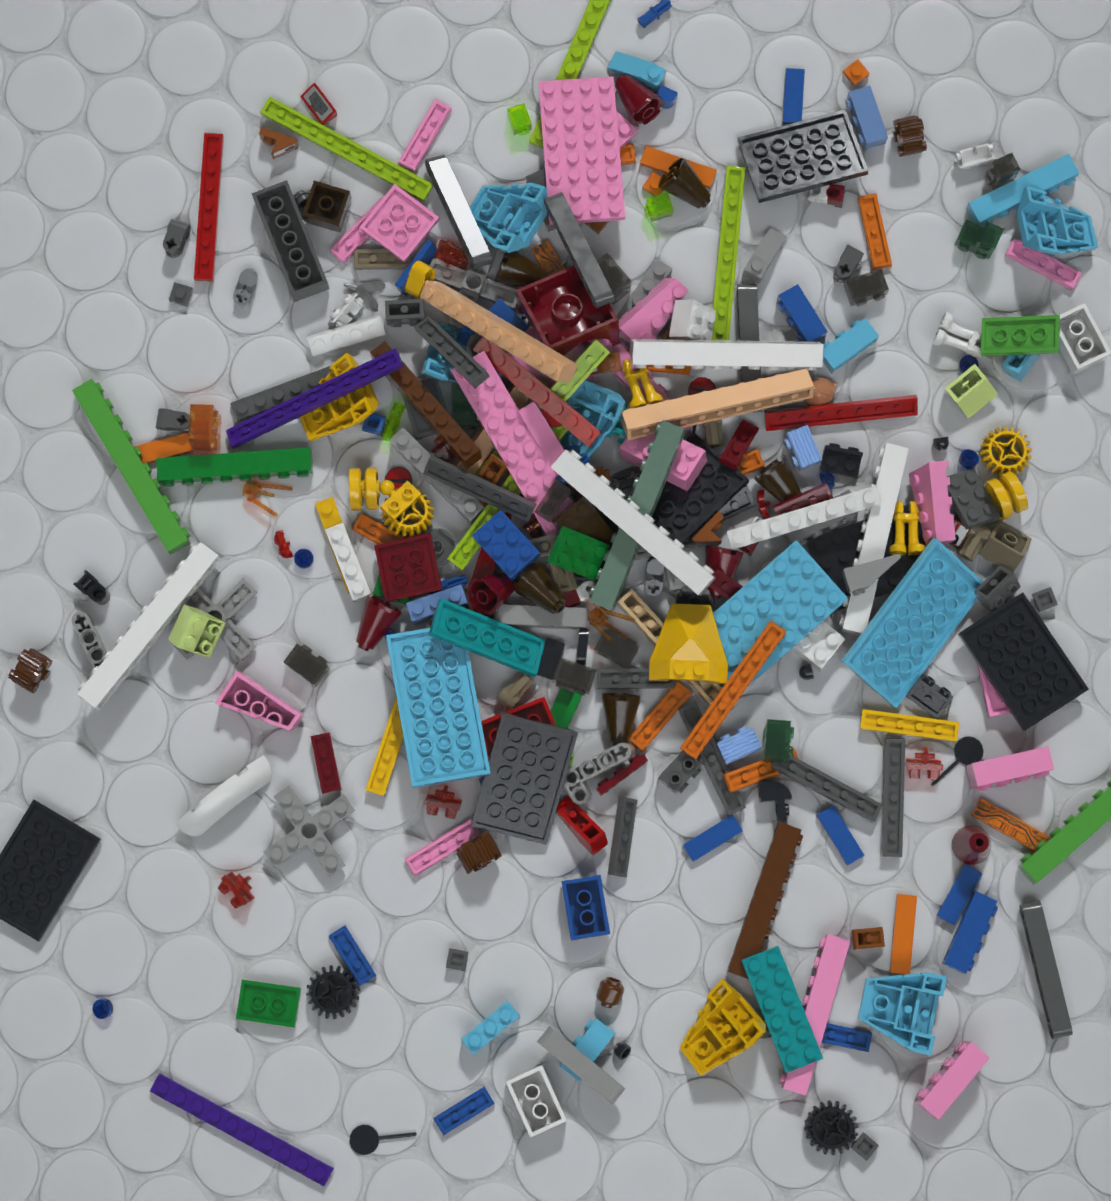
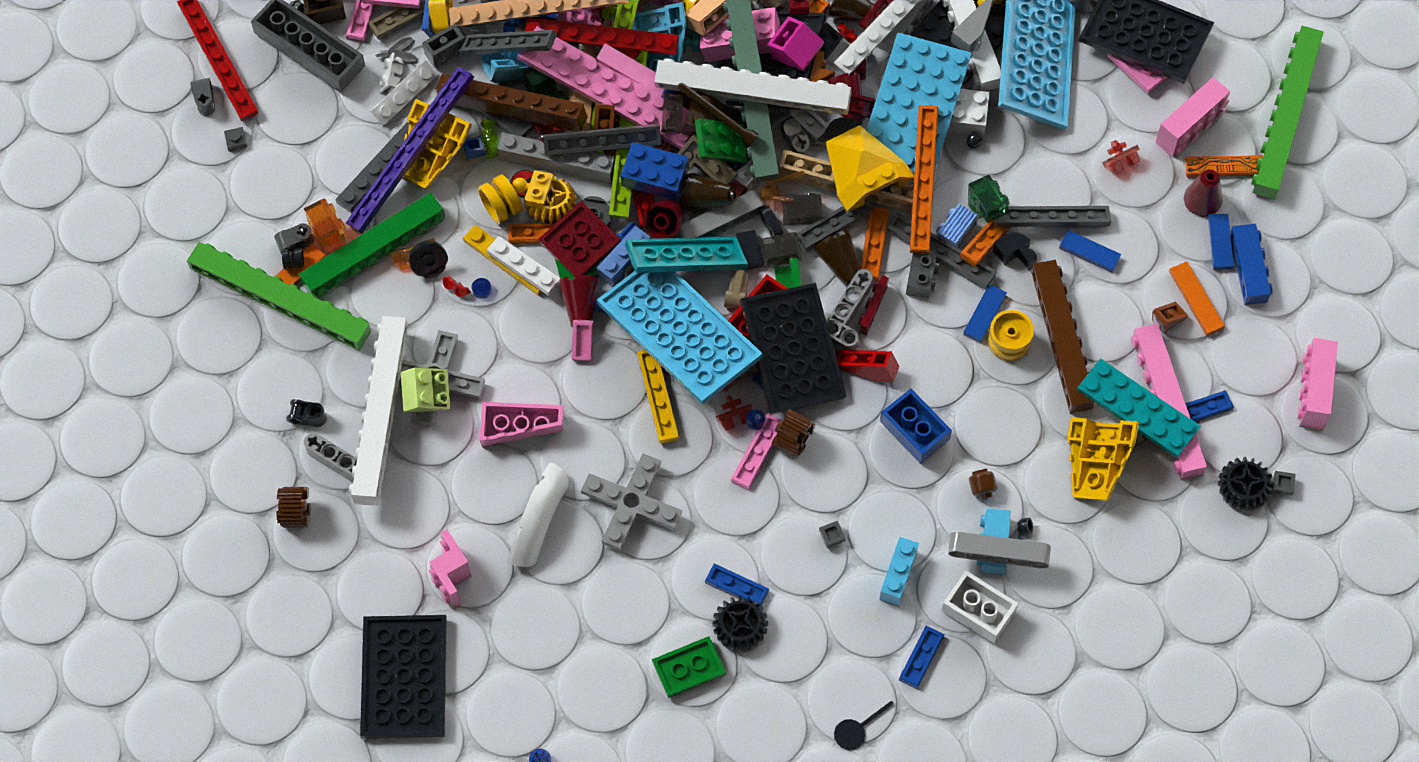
camera: 30 degrees left, 15 degrees down
(124, 802) = (449, 569): none -> bright pink bracket
(160, 440) = (292, 259): none -> black wheel
(239, 887) = (606, 591): clear red hips -> none
(241, 294) = (293, 109): dark grey piece -> none
(272, 508) = (428, 259): none -> black tile
(306, 664) = (540, 369): clear smoke brick -> none
(326, 763) = (609, 440): dark red plate -> none
(356, 660) = (582, 340): none -> bright pink tile
(455, 820) = (755, 419): none -> clear blue tile
(603, 563) = (747, 135): none -> dark brown piece
(622, 837) = (908, 354): dark grey plate -> none
(700, 497) = (794, 44): none -> dark pink slope
(707, 874) = (1010, 335): none -> yellow wheel
(893, 798) = (1114, 196): dark grey plate -> none
(903, 1008) = (1238, 347): medium azure wedge -> none
(909, 725) = (1087, 134): yellow plate -> none
(930, 696) = (1089, 103): black bracket -> none
(967, 751) = (1147, 130): black piece -> none
(1045, 970) = (1333, 257): dark grey beam -> none

